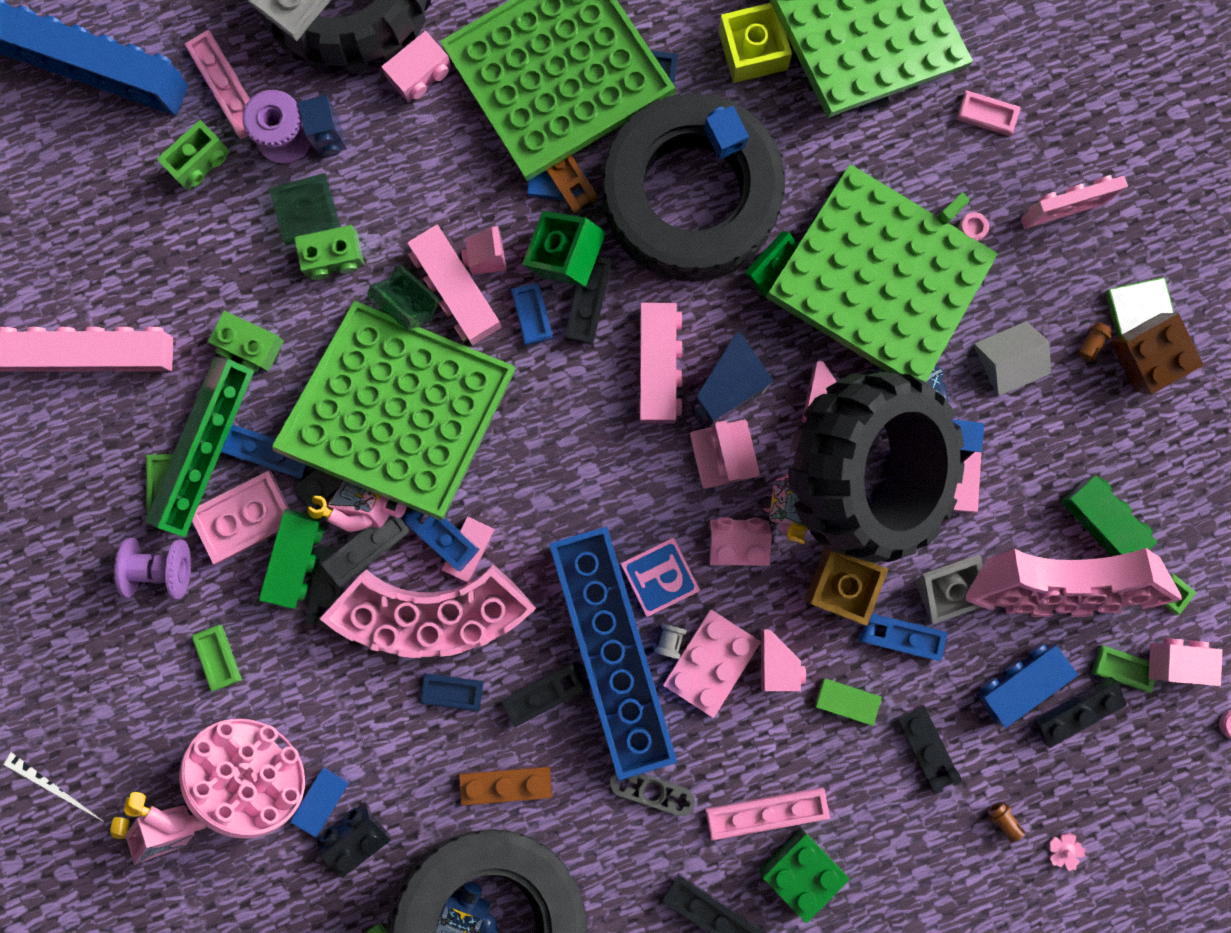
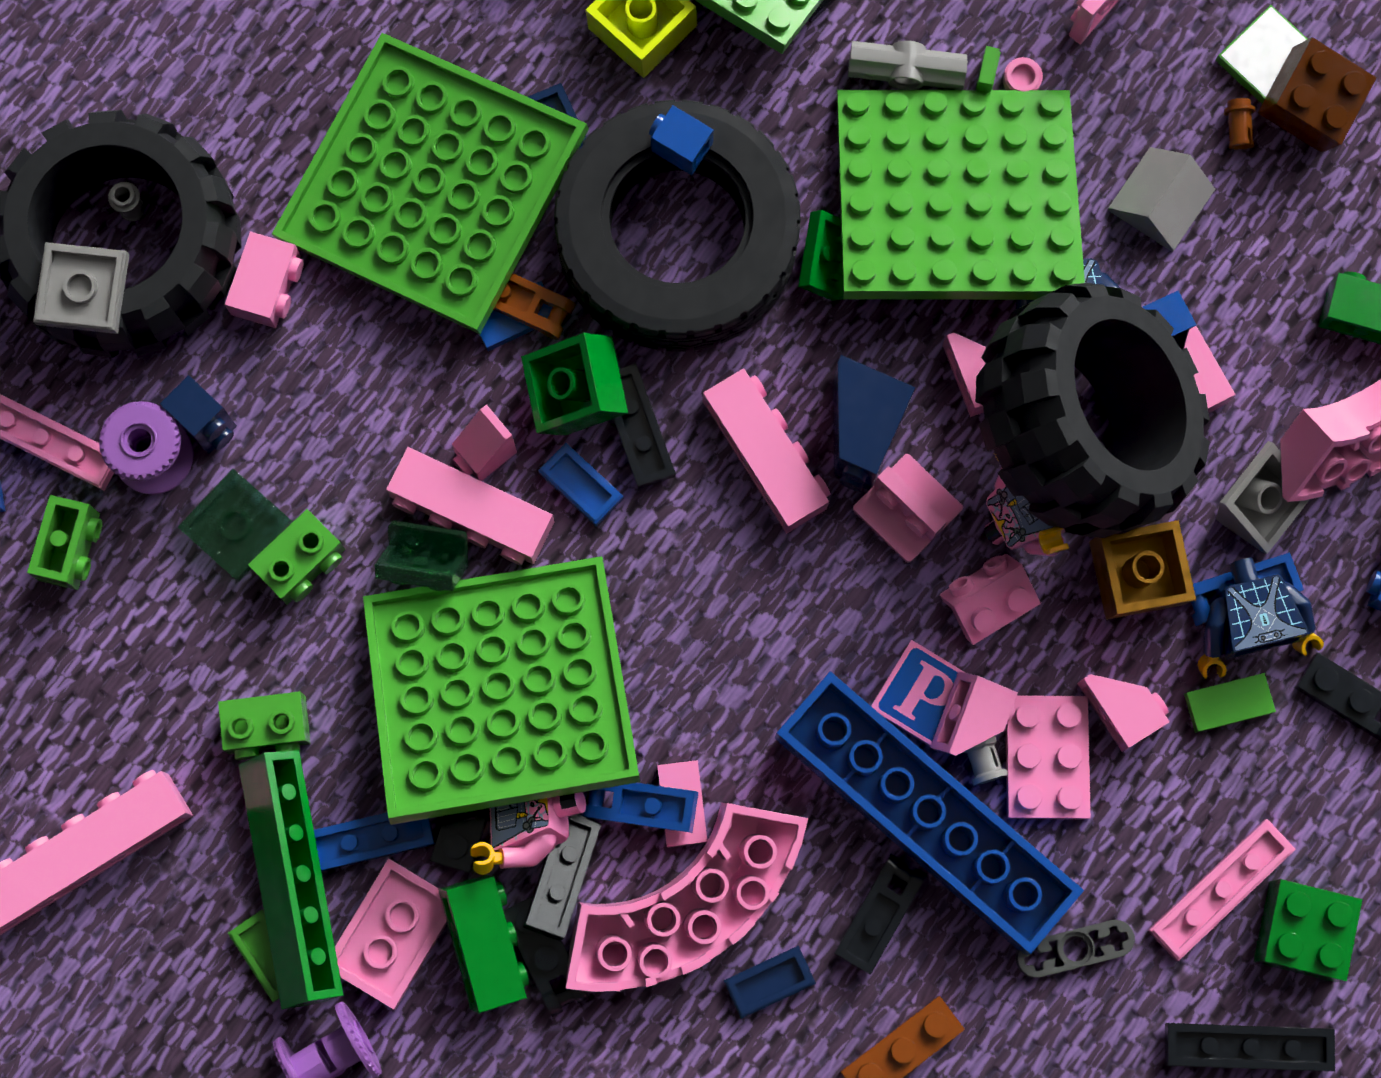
camera: 30 degrees left, 5 degrees down
(680, 608) = (973, 713): none -> bright pink slope
(898, 660) = (1255, 618): none -> dark blue torso
(904, 175) = (907, 65): none -> light grey piece

